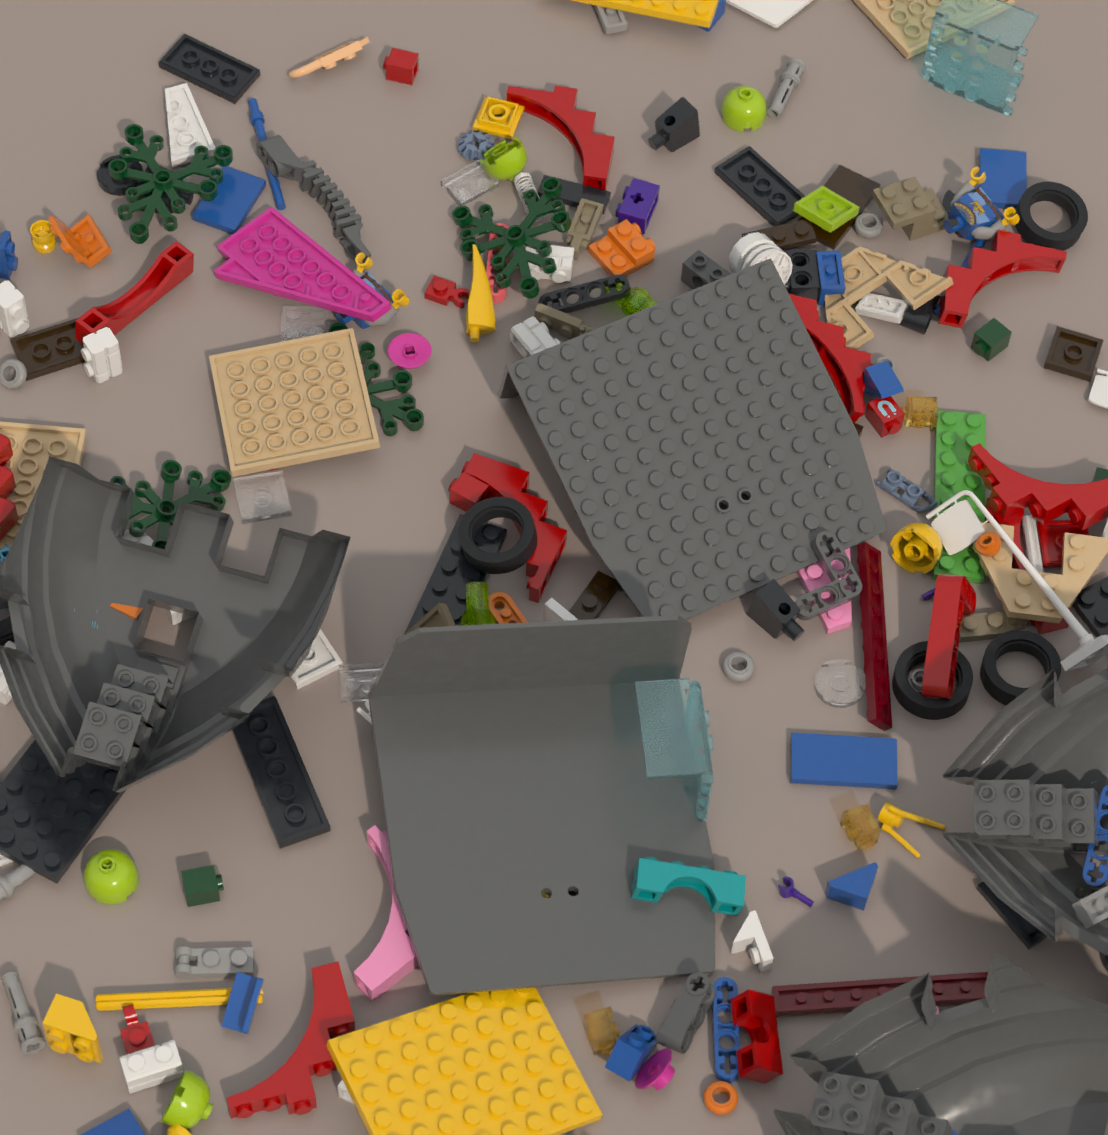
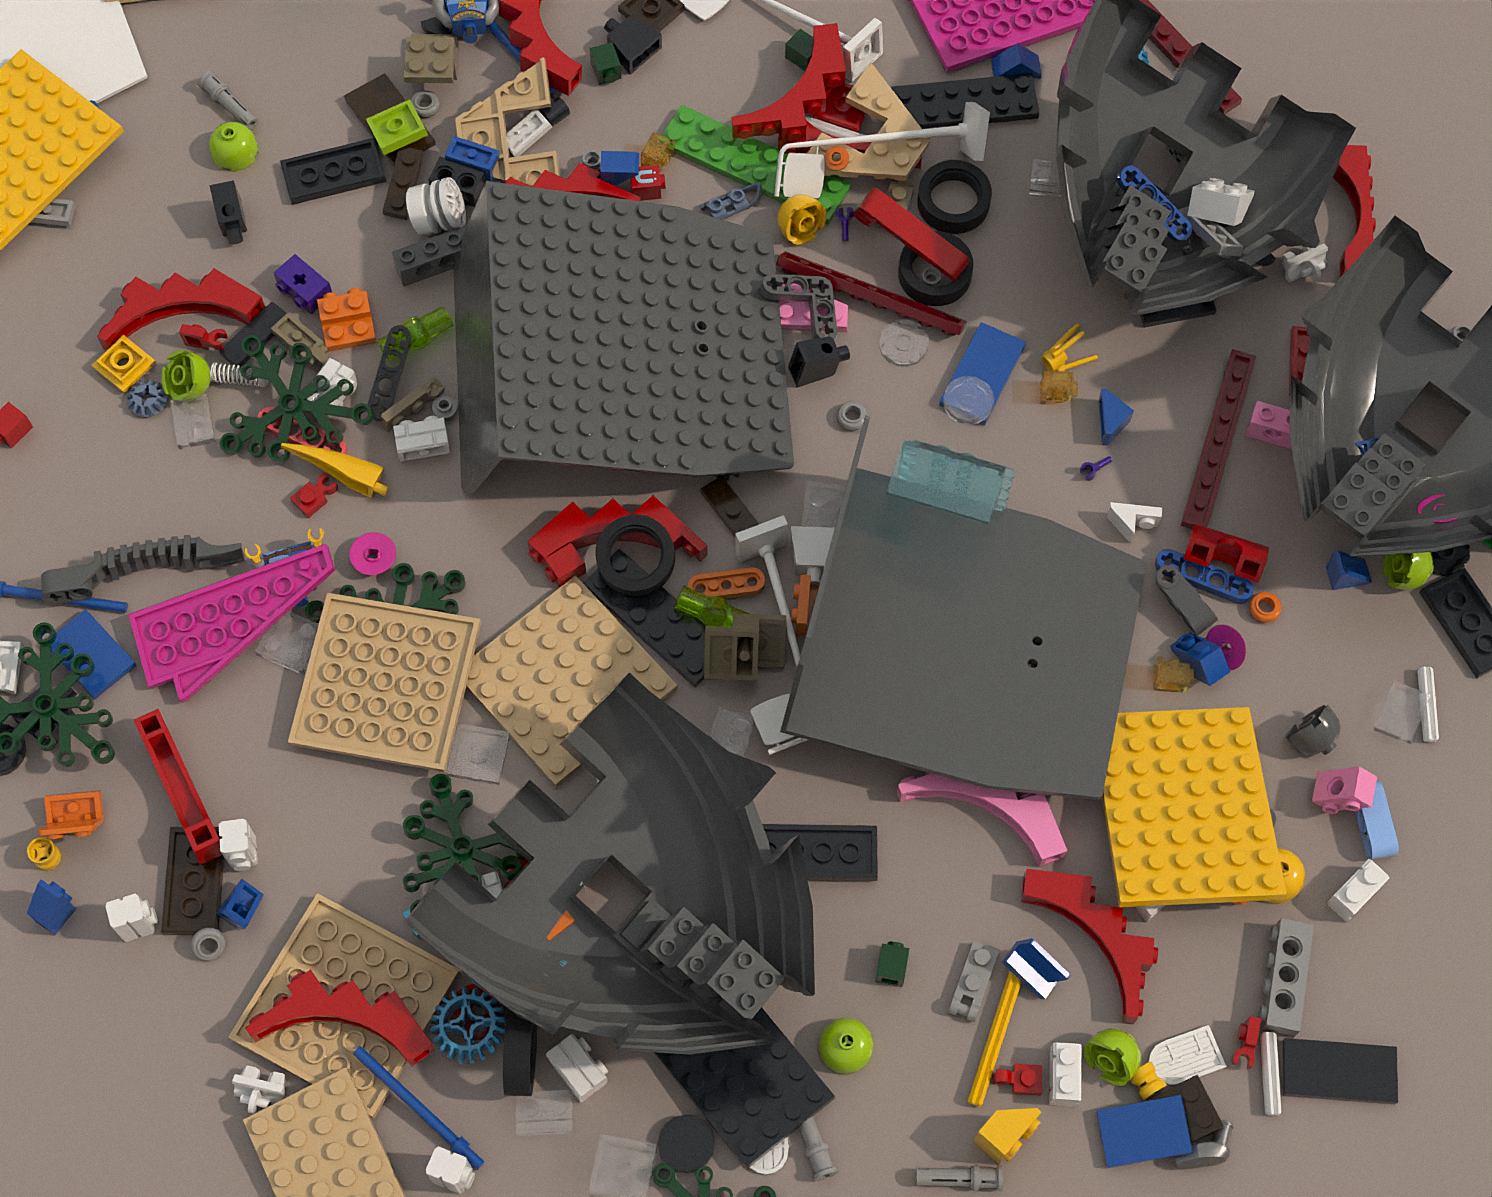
camera: 65 degrees left, 10 degrees up
(52, 380) = (240, 905): none -> blue slope
(391, 530) = (554, 670): none -> tan plate
(548, 155) = (199, 337): none -> red plate
(721, 890) = (1080, 524): teal arch -> none
(803, 753) = (968, 400): none -> clear tile
(1025, 352) = (633, 42): none -> black torso

